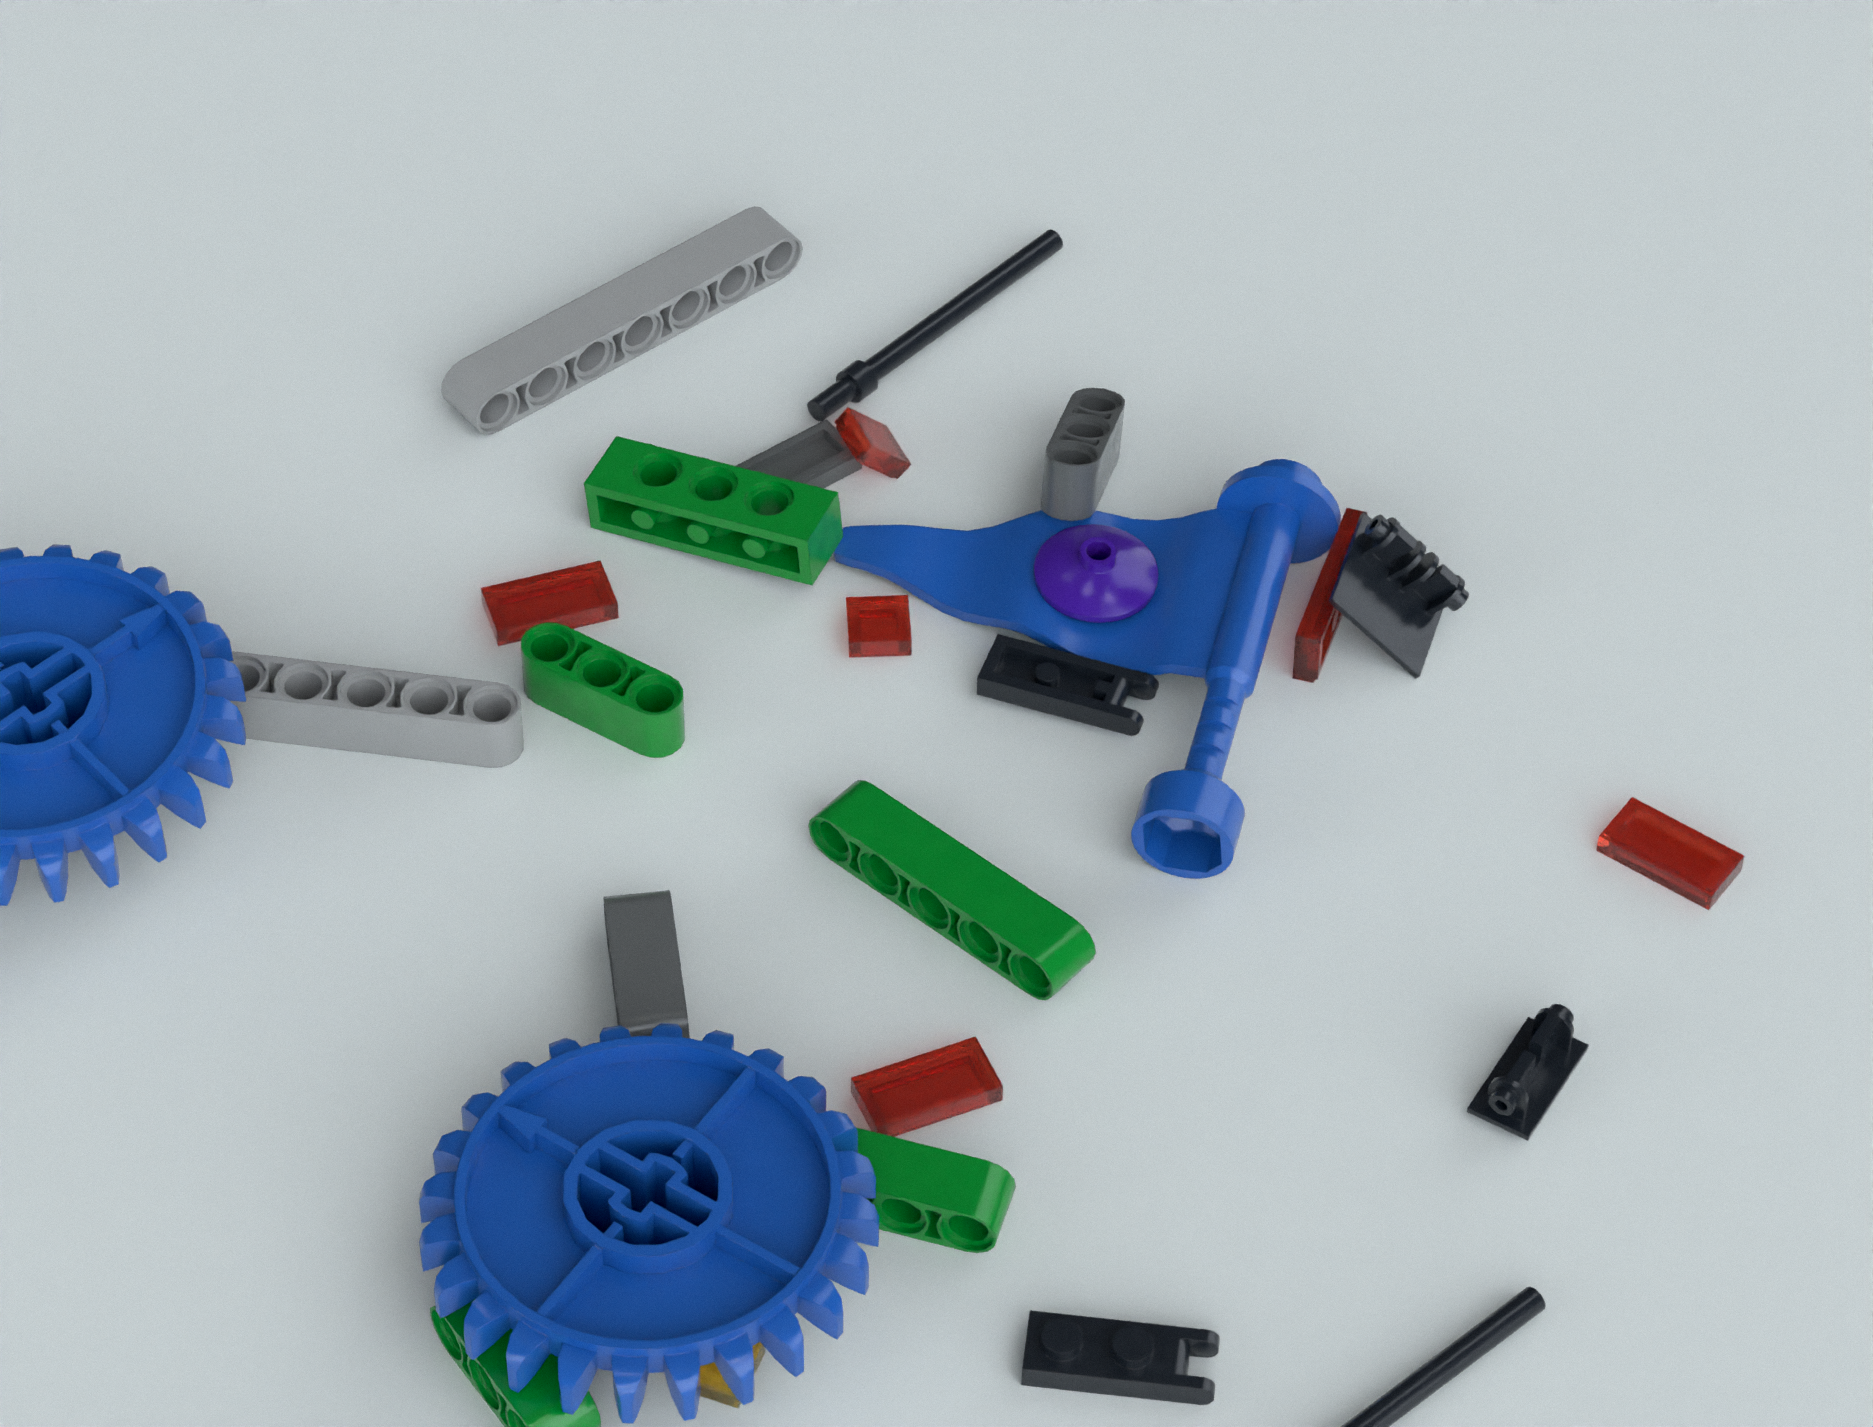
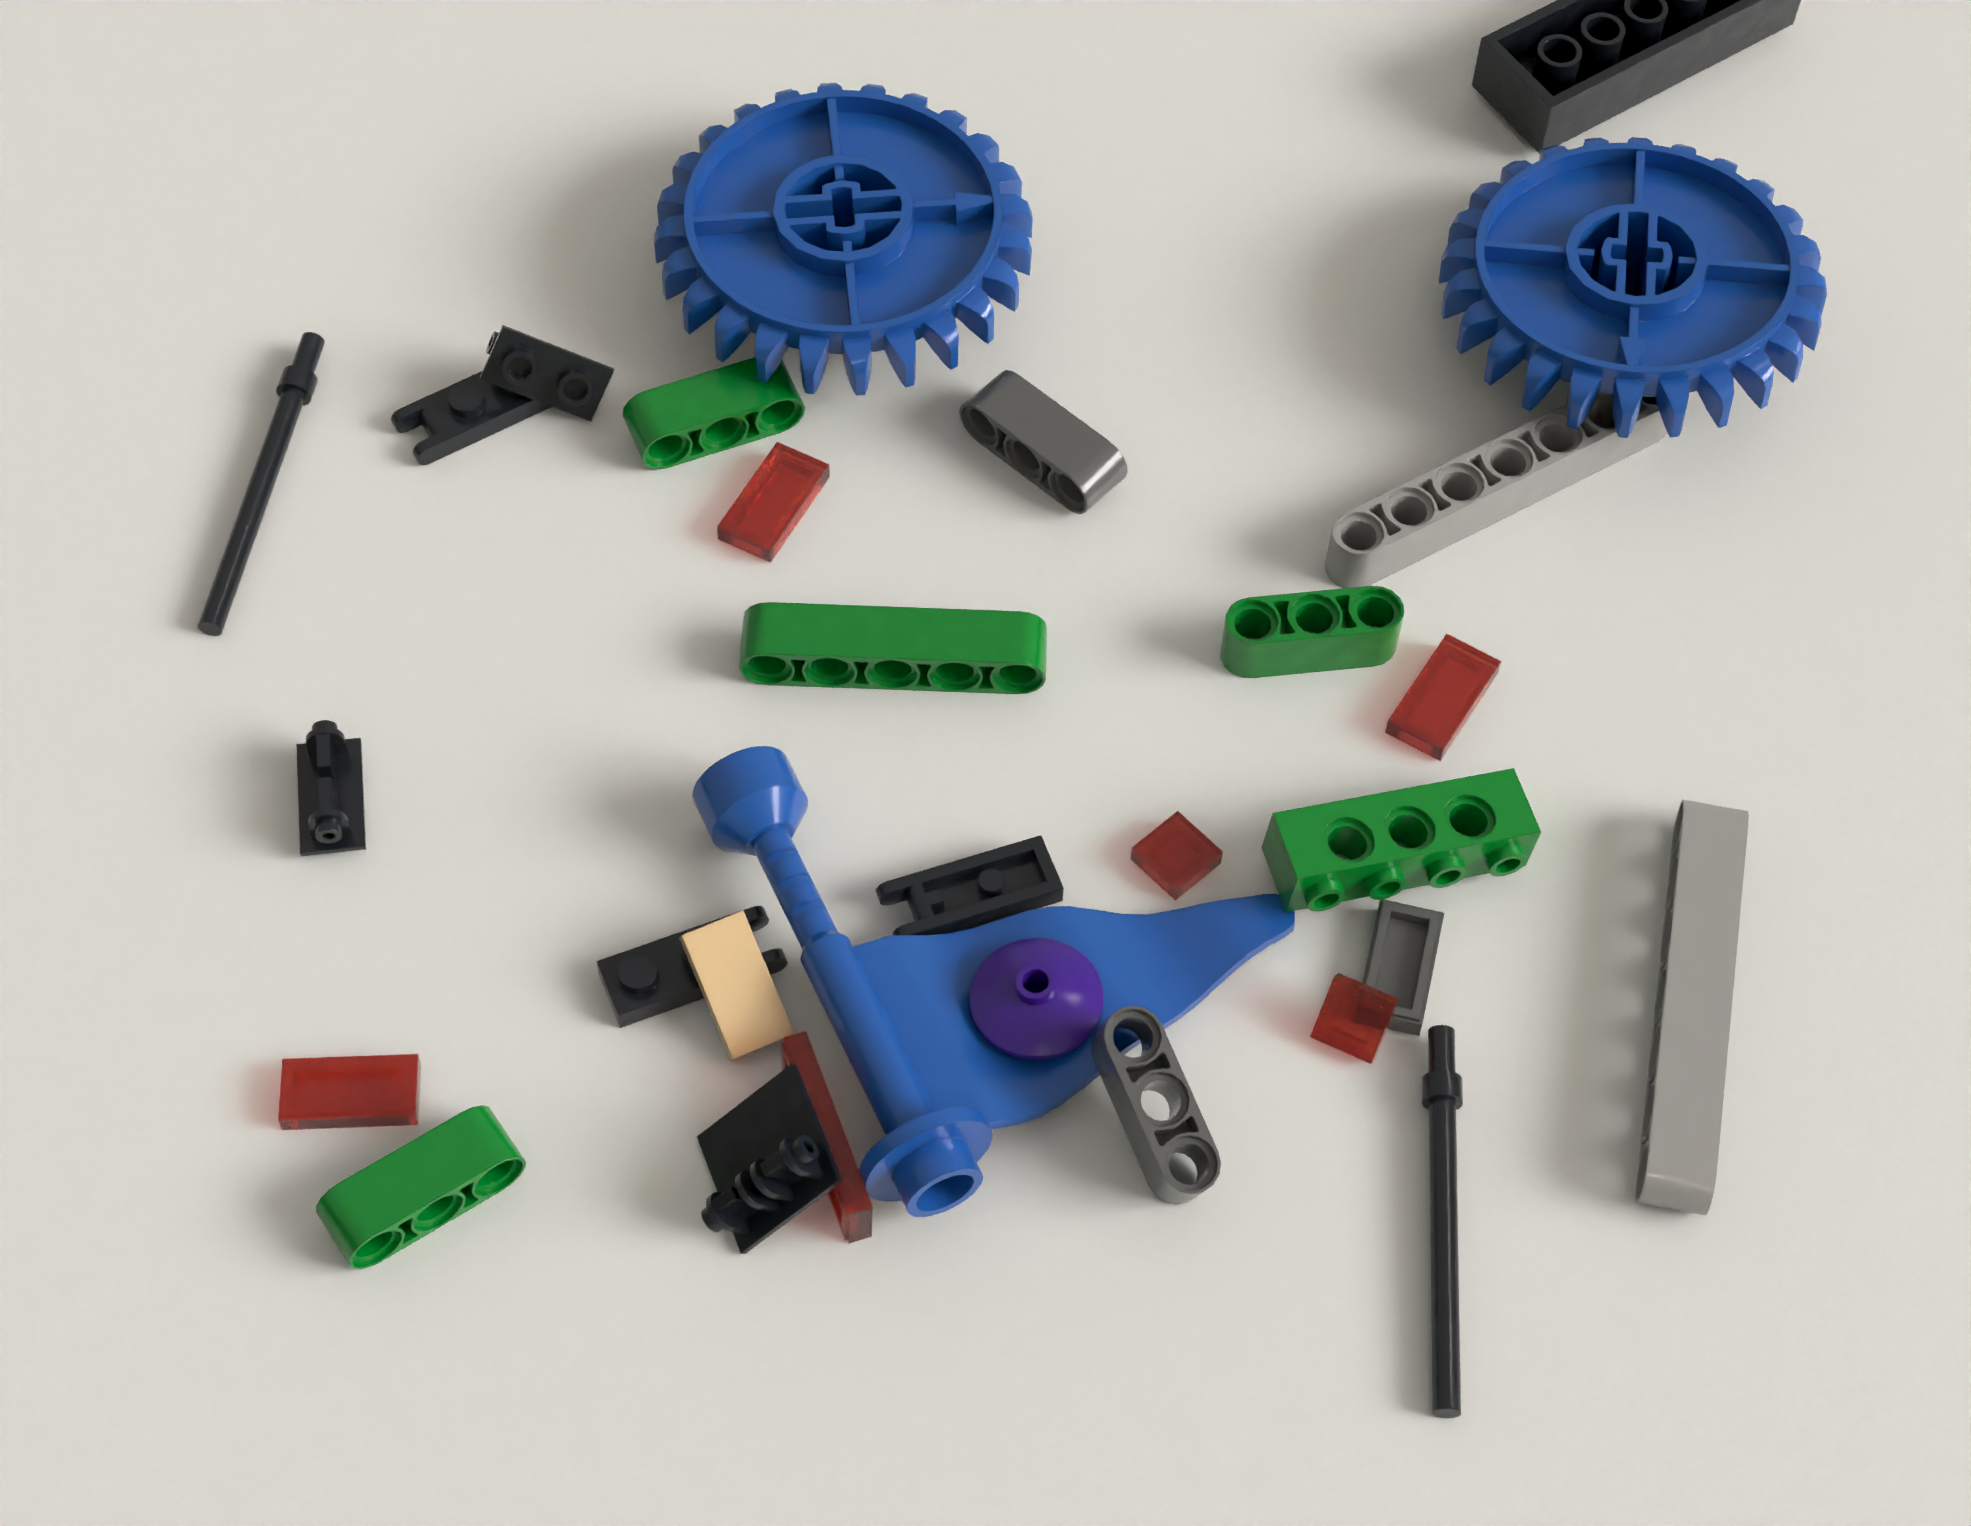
camera: 140 degrees right, 10 degrees up
(1056, 1317) = (545, 372): none -> black hinge
(1312, 719) = (736, 985): none -> tan tile
(1329, 779) = (660, 976): none -> black hinge
(1664, 741) = (420, 1187): none -> green beam

